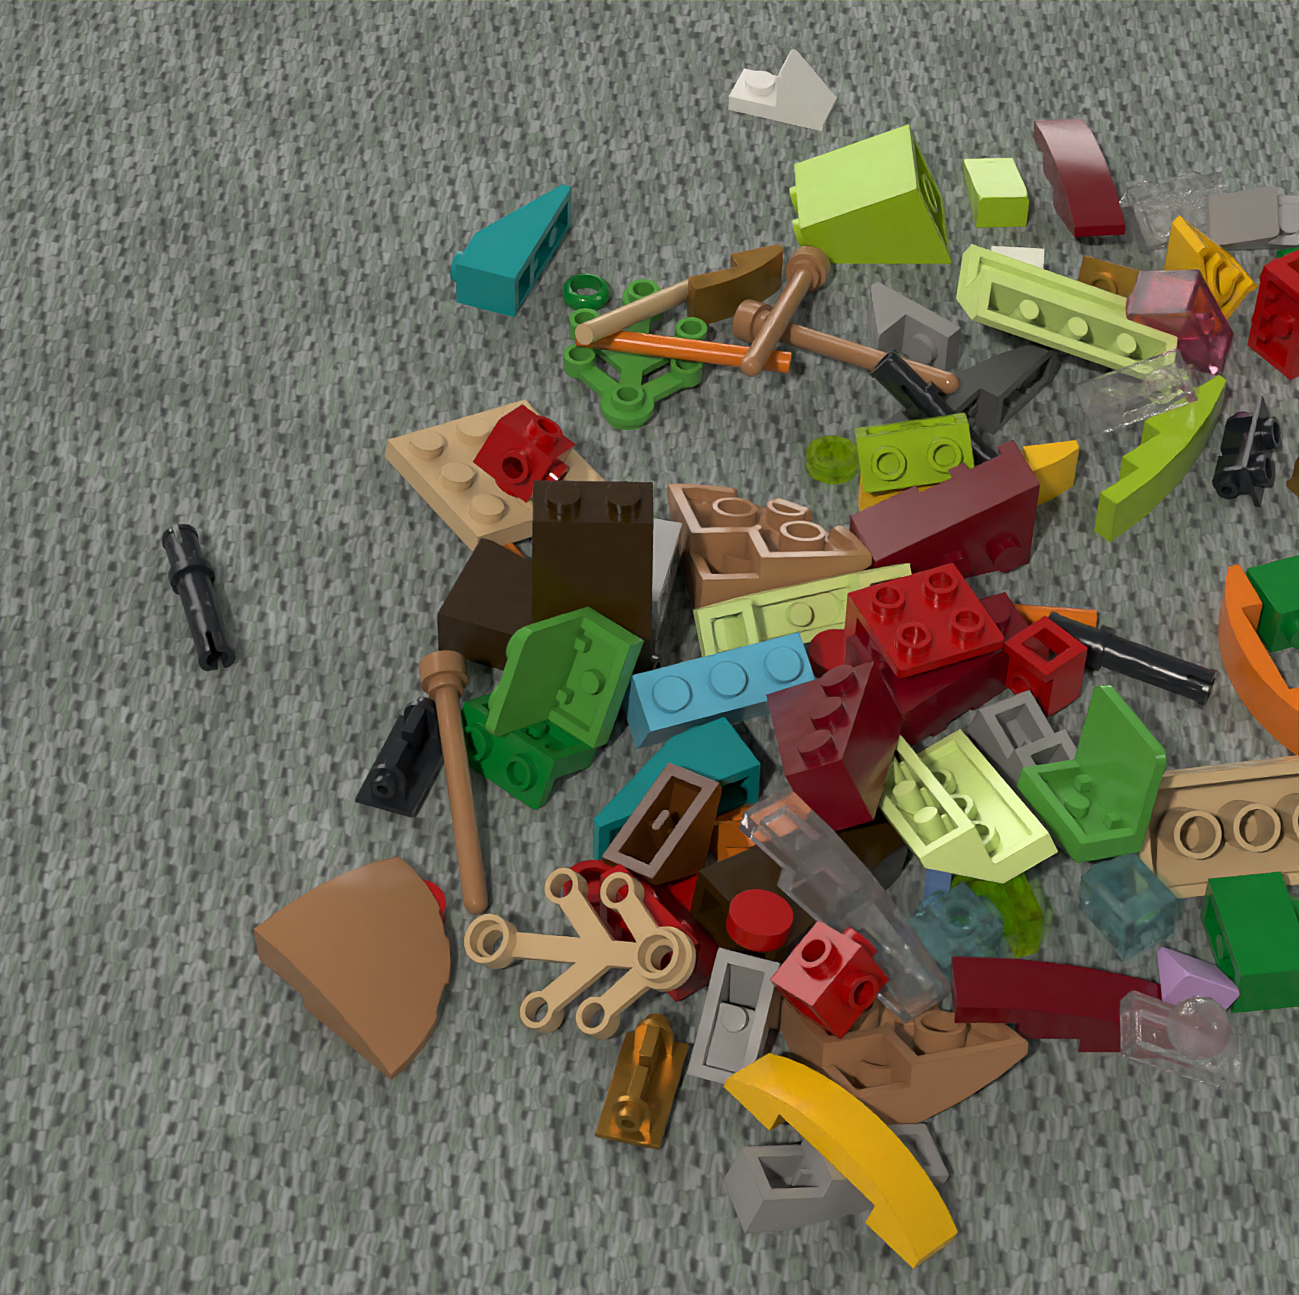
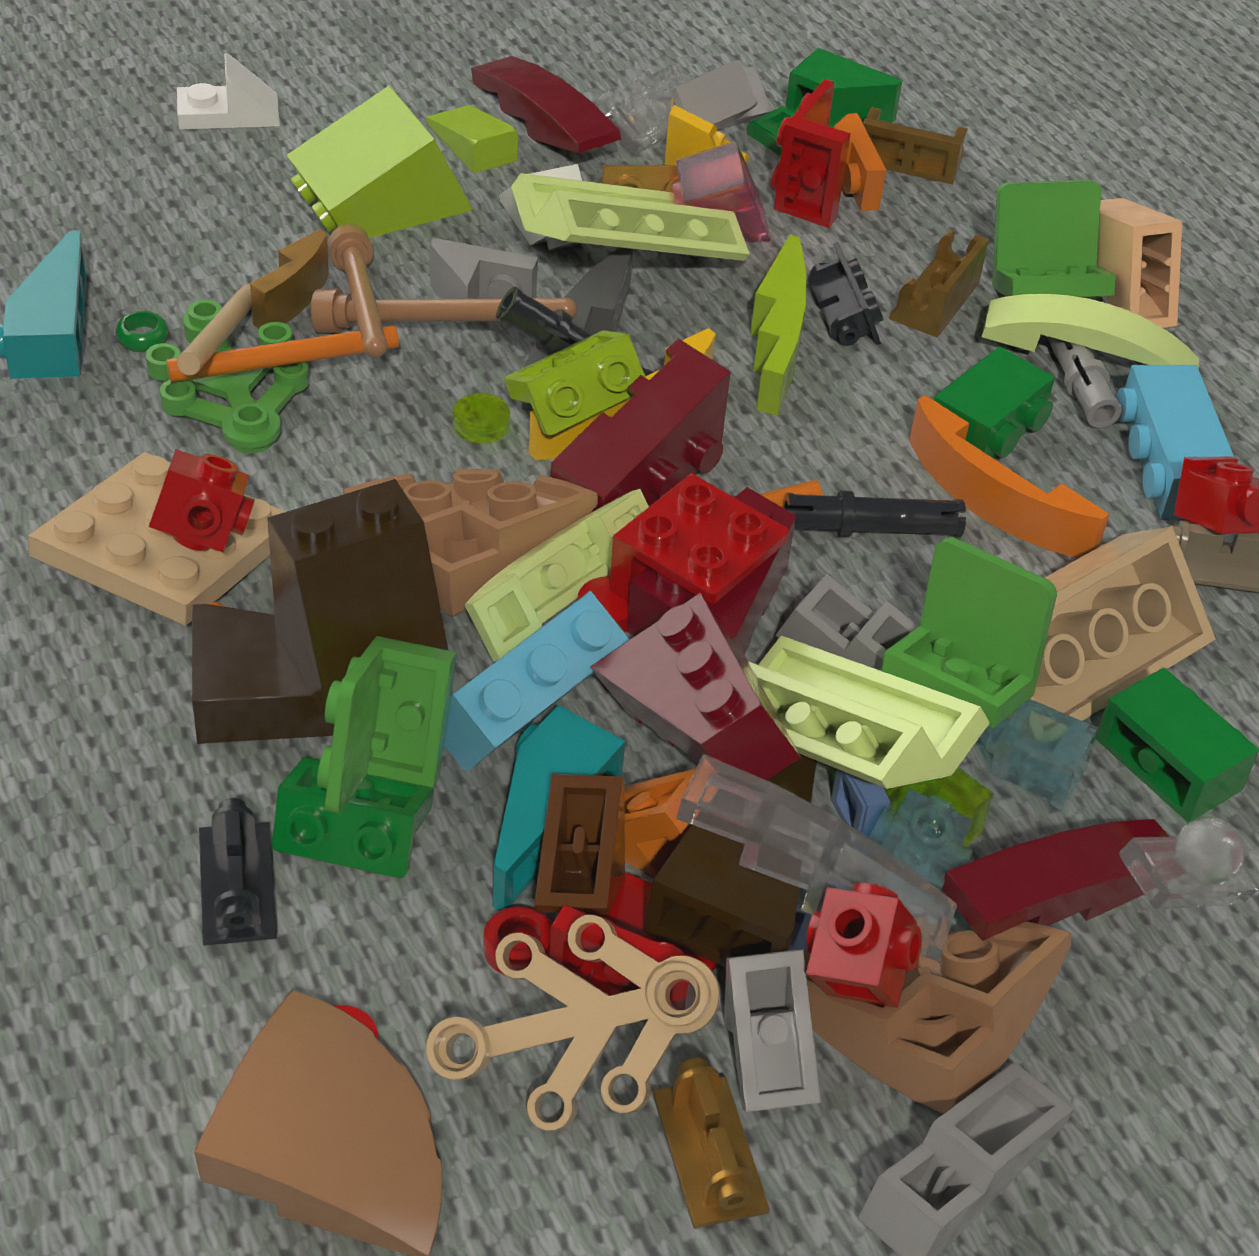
camera: 30 degrees left, 0 degrees up
(444, 680) = (241, 770): medium nougat piece -> none
(759, 920) = (757, 911): red tile -> none
(858, 1144) = (980, 1114): yellow slope -> none
(1051, 682) = (811, 557): red brick -> none
(1138, 392) = (737, 269): clear bracket -> none
(1188, 976) = (1153, 807): lavender slope -> none

